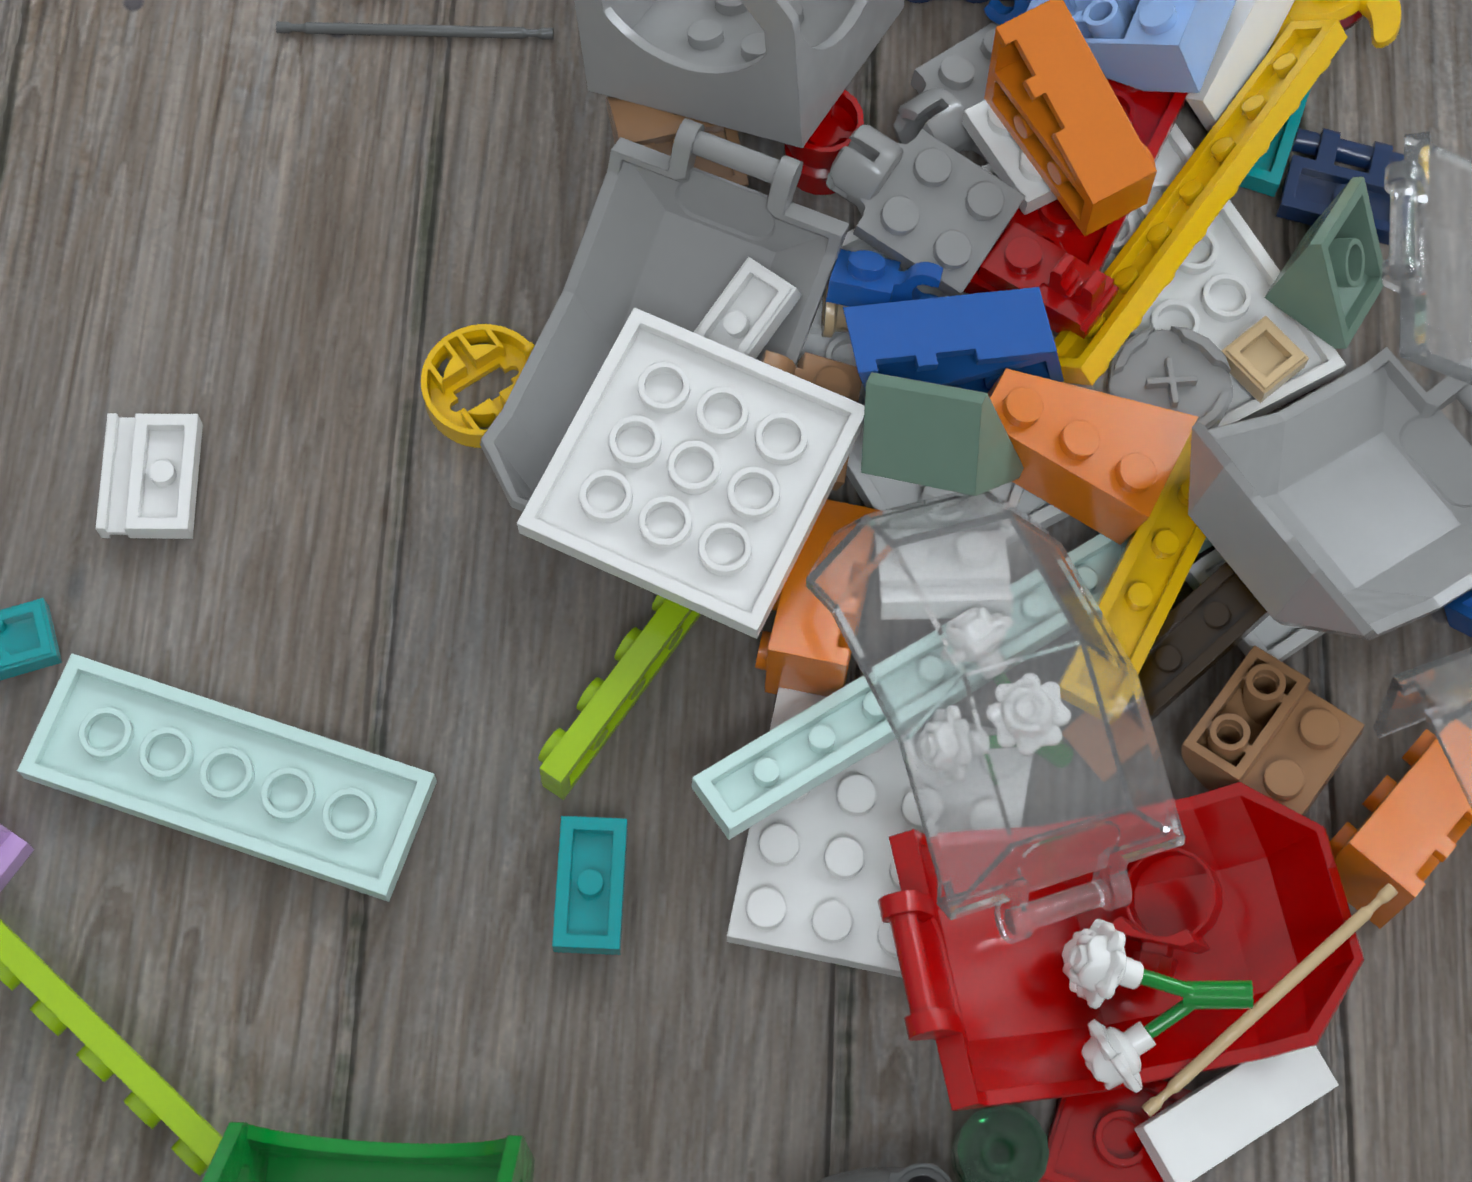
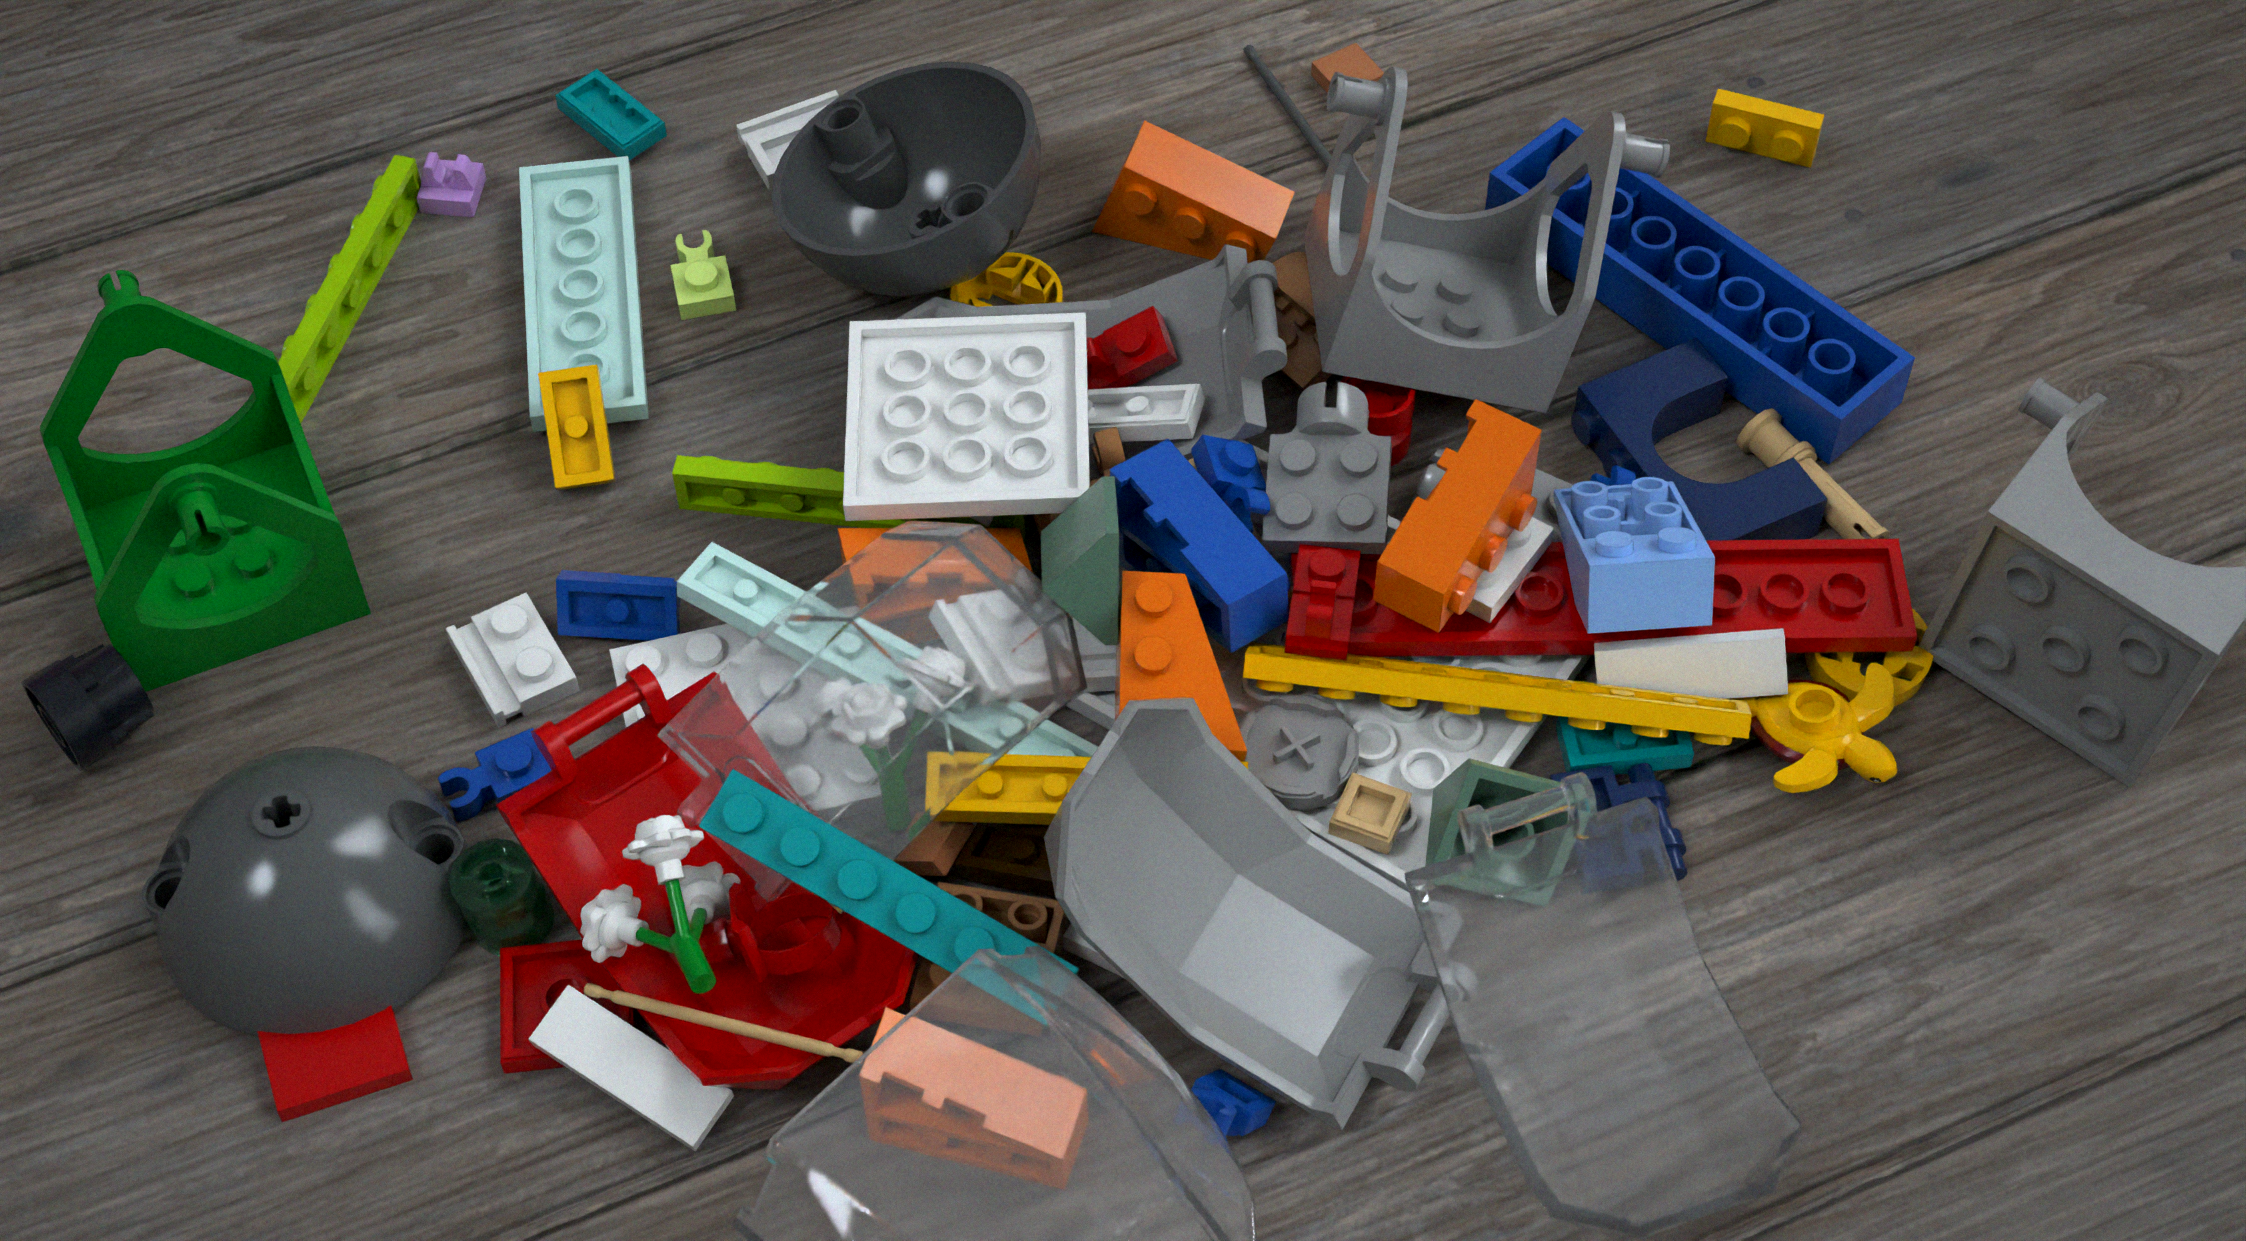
camera: 65 degrees right, 15 degrees down
(280, 657) = (701, 280): none -> yellowish green plate
(315, 339) = (949, 184): none -> dark grey piece
(434, 852) = (576, 427): none -> yellow plate
(470, 166) = (1191, 200): none -> orange wedge
(590, 885) = (610, 540): teal plate -> none
(643, 285) = (1129, 351): none -> red plate
(680, 1036) = (513, 659): none -> white plate
(681, 903) = (616, 605): none -> blue plate
(821, 1092) = (501, 773): none -> blue plate
(1218, 793) = (855, 876): none -> teal plate

